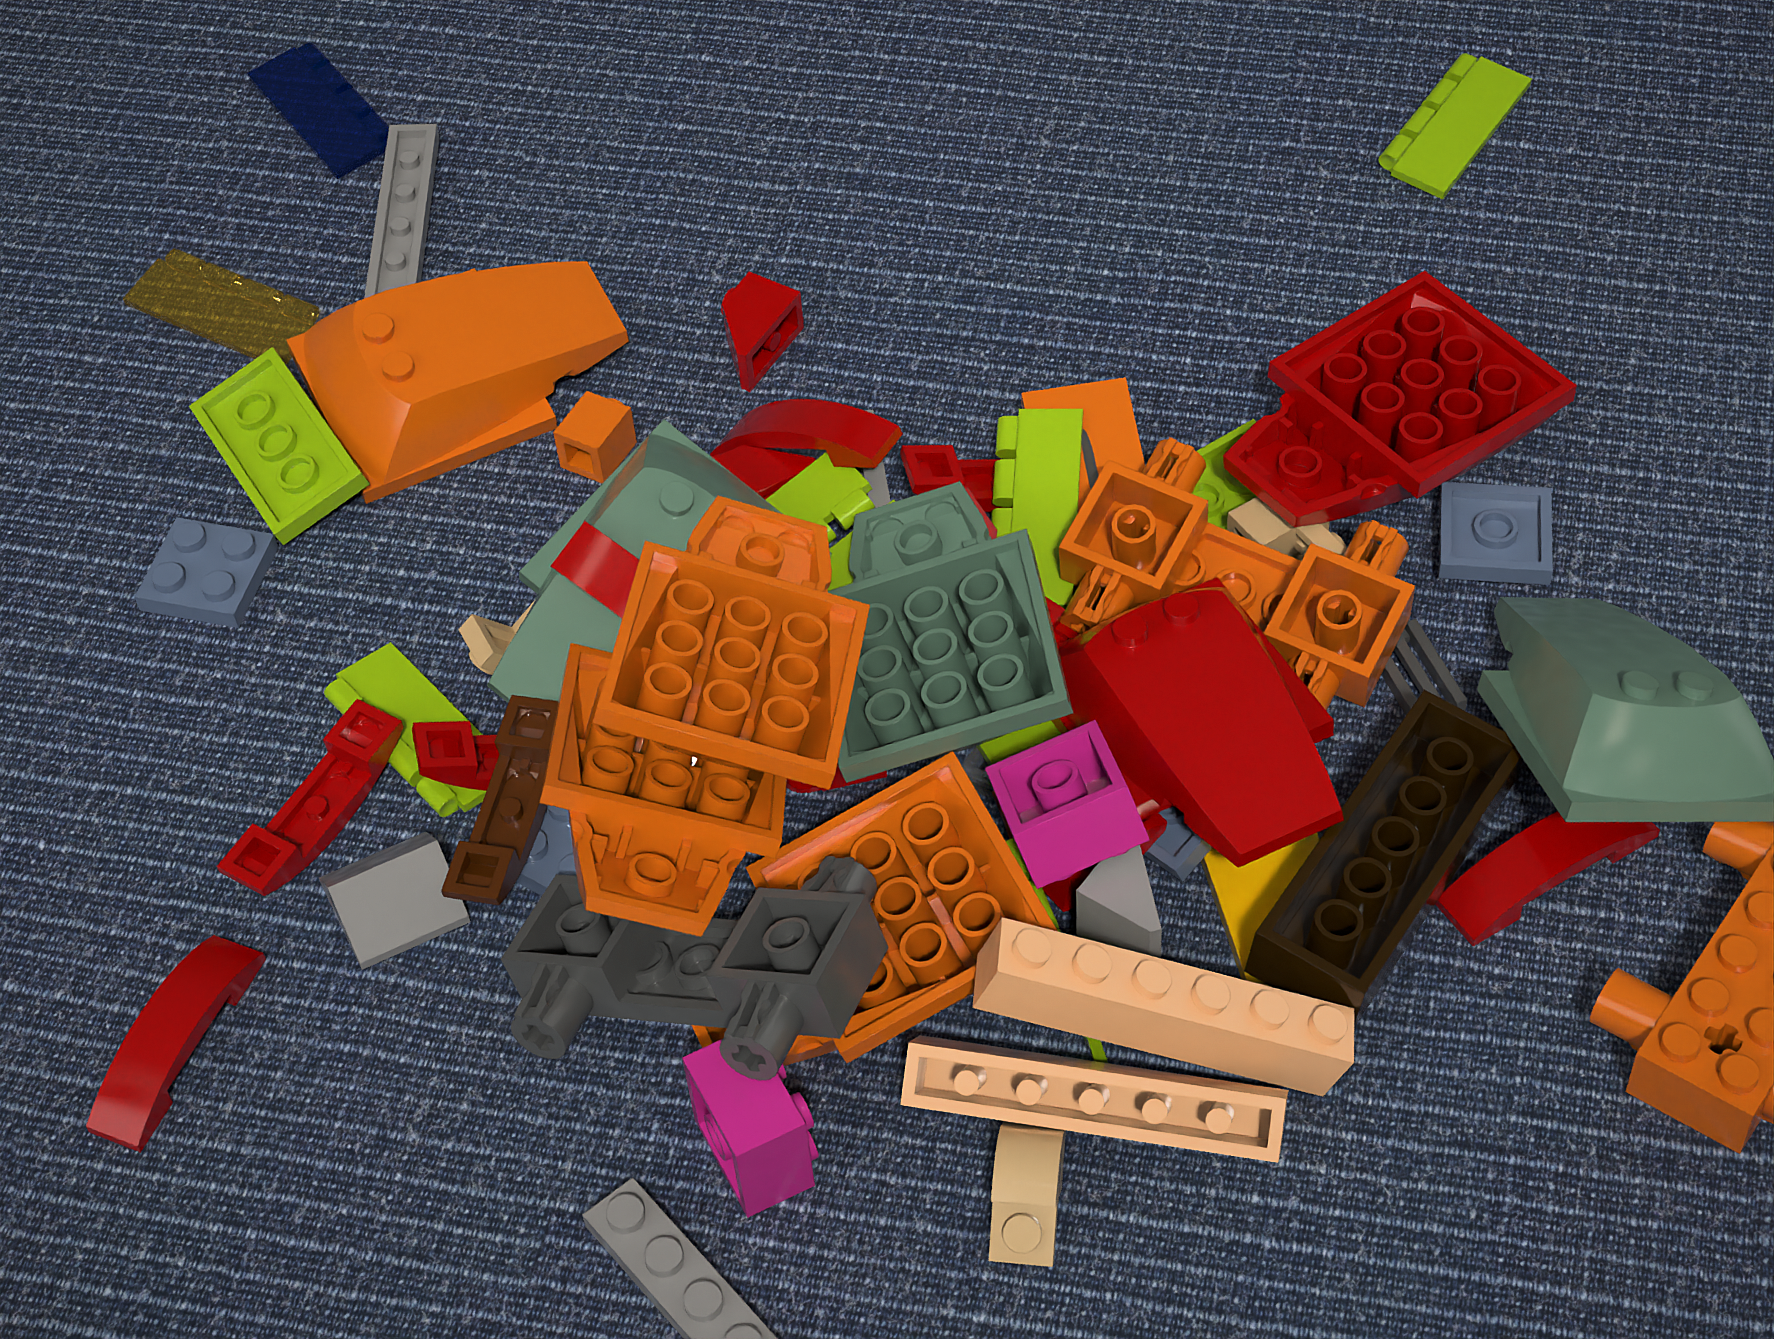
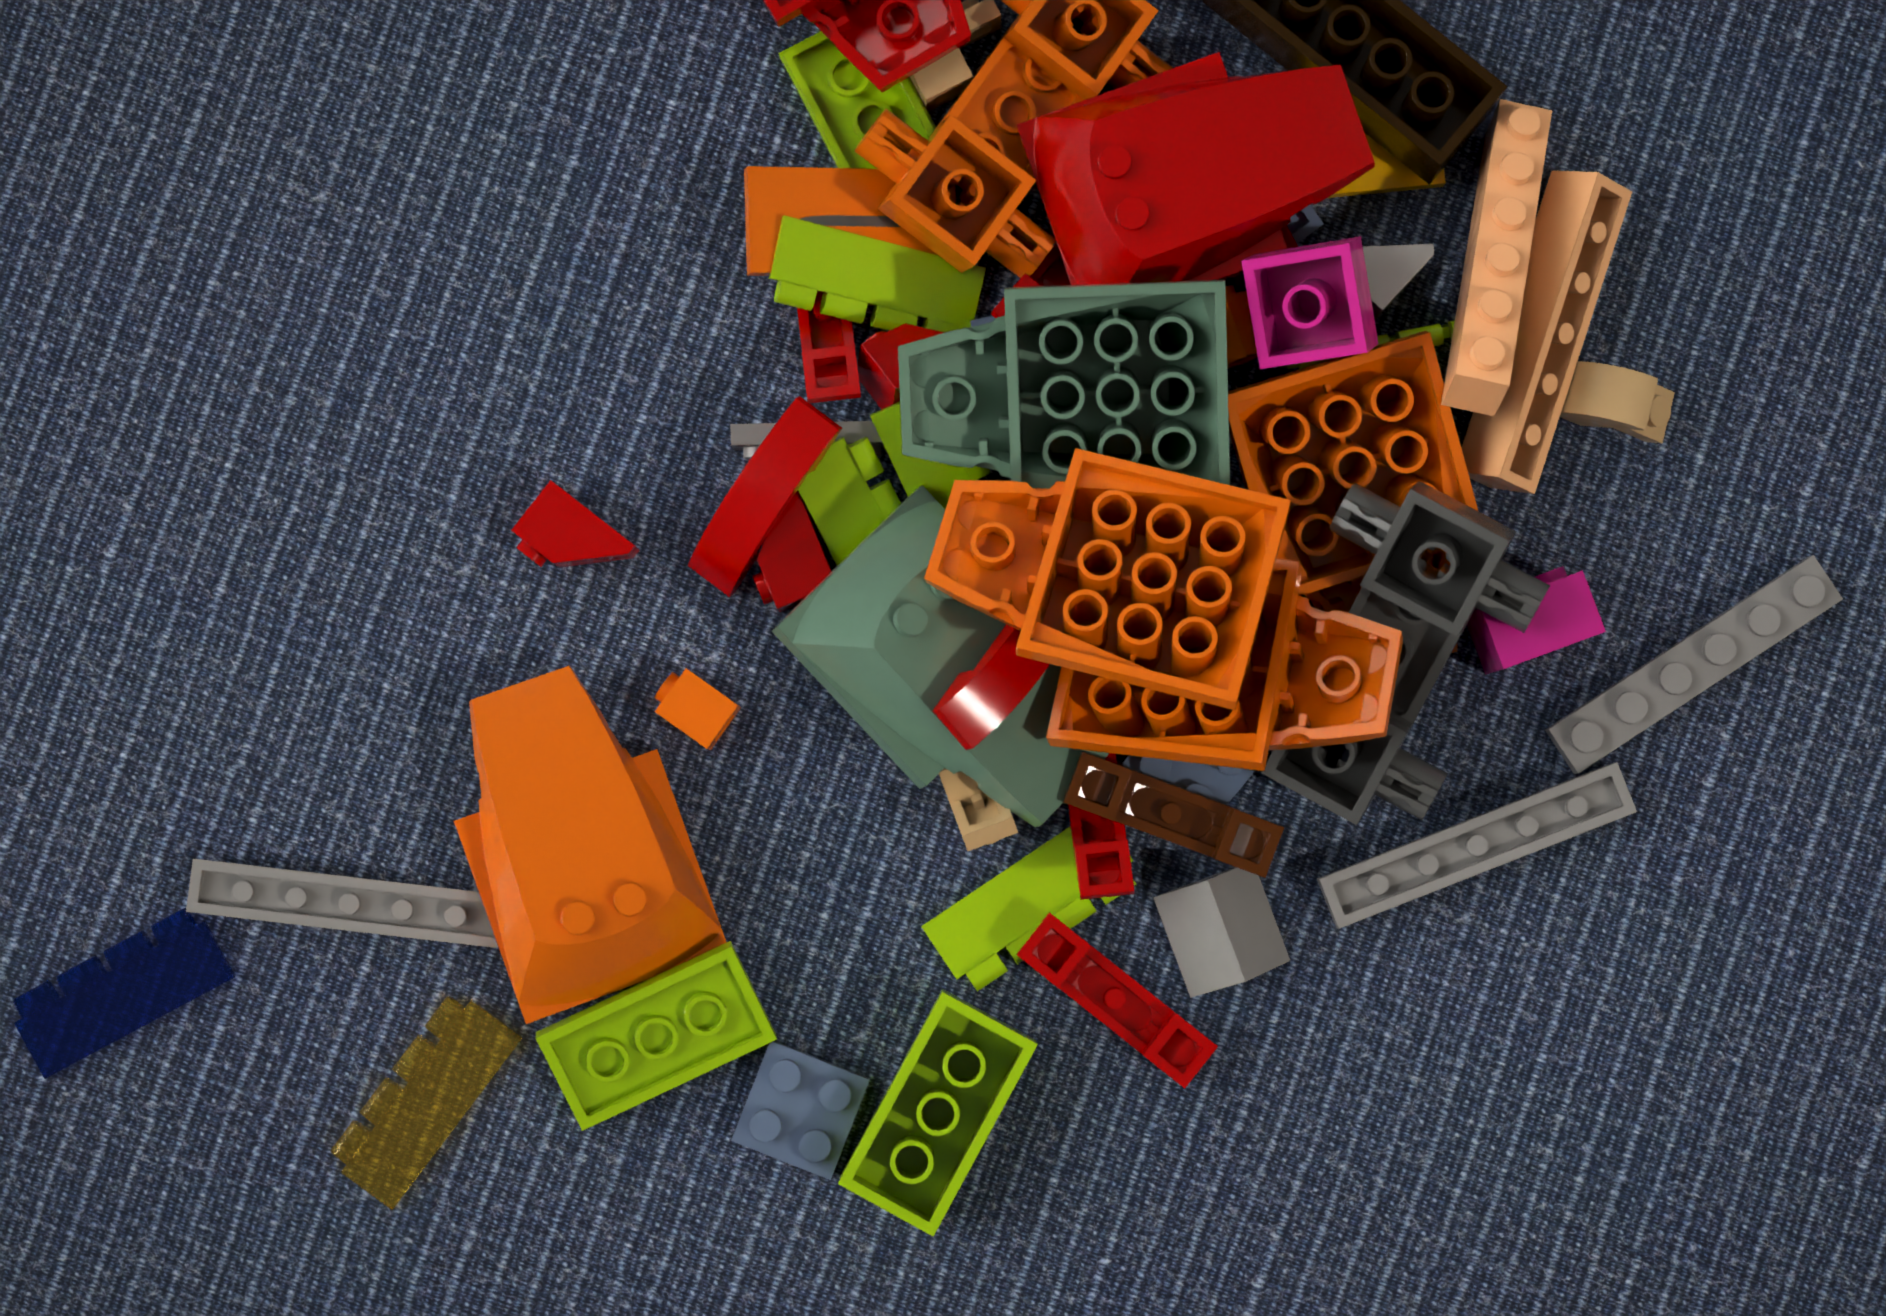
camera: 85 degrees left, 35 degrees up
(164, 1036) = (1344, 1125): red slope -> none
(197, 658) = (937, 1112): none -> lime brick
(496, 1126) = (1476, 845): none -> light grey plate

